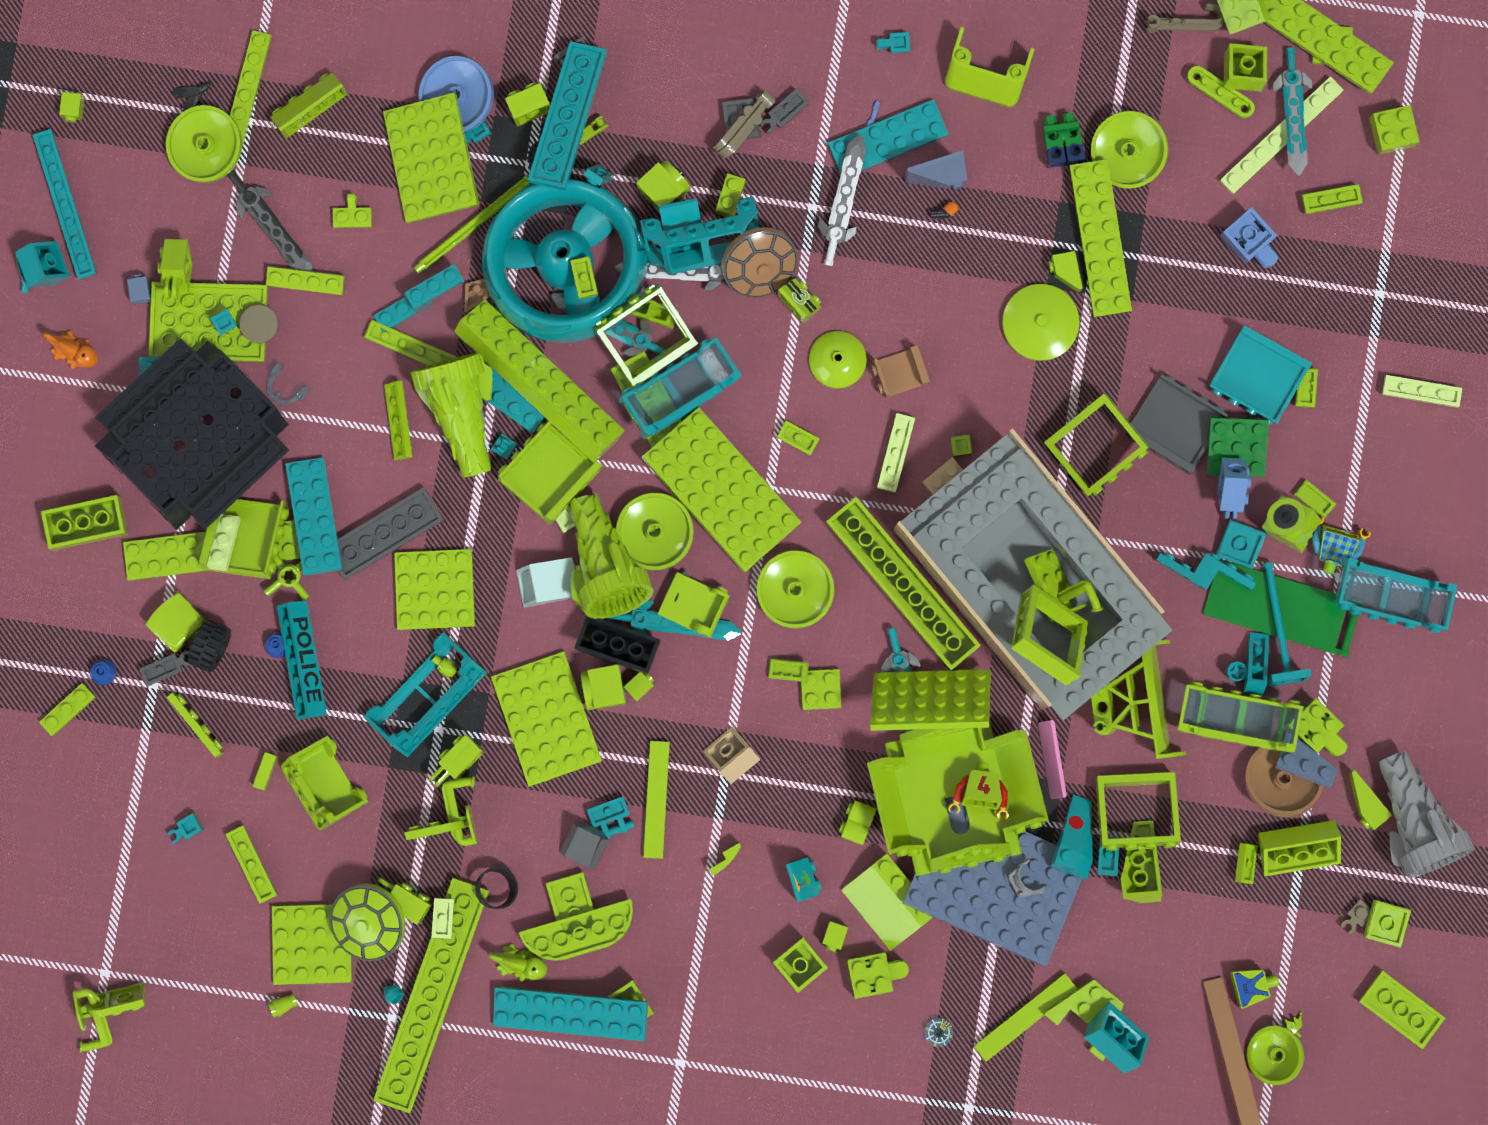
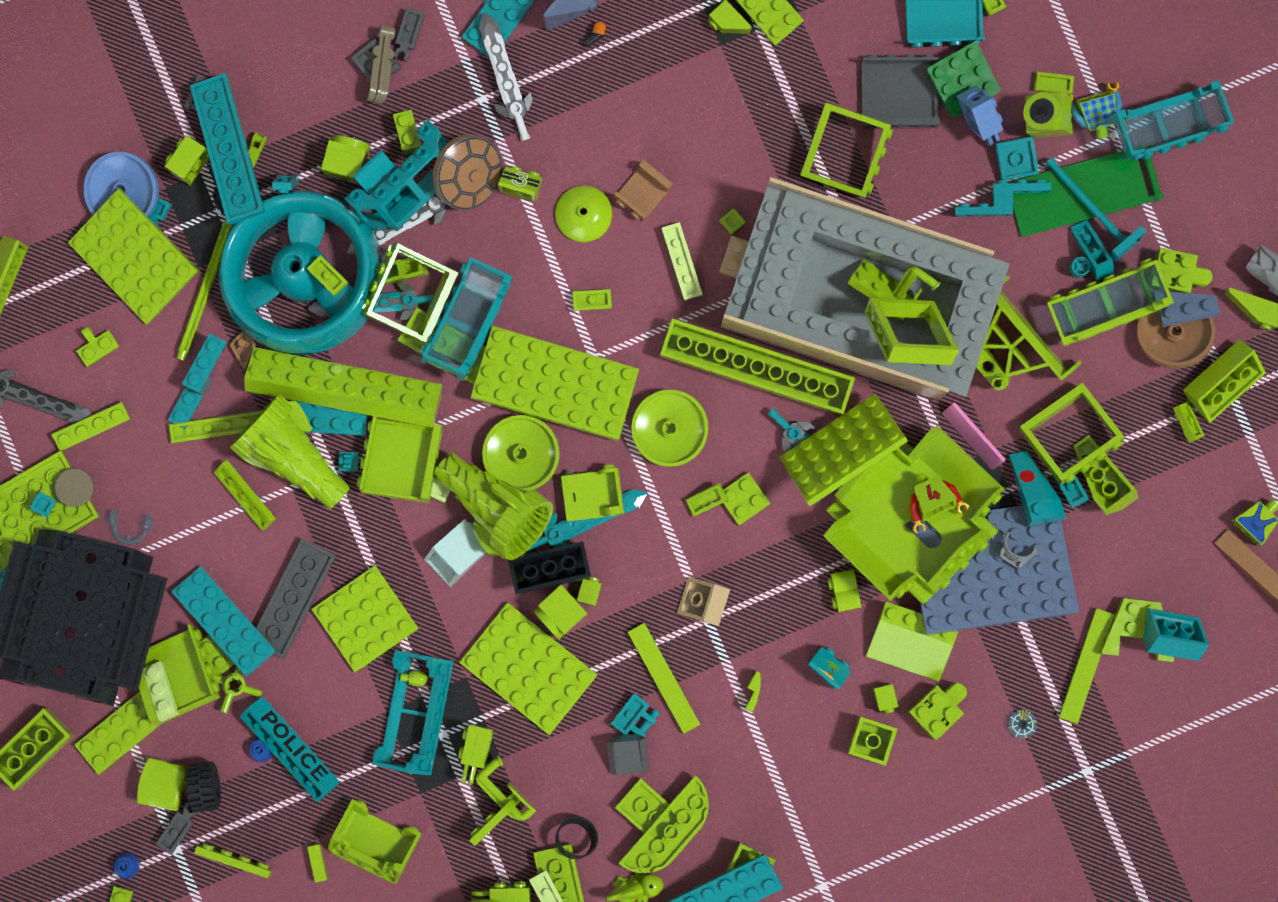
camera: 35 degrees left, 0 degrees up
(1040, 322) = (734, 77): lime dish -> none

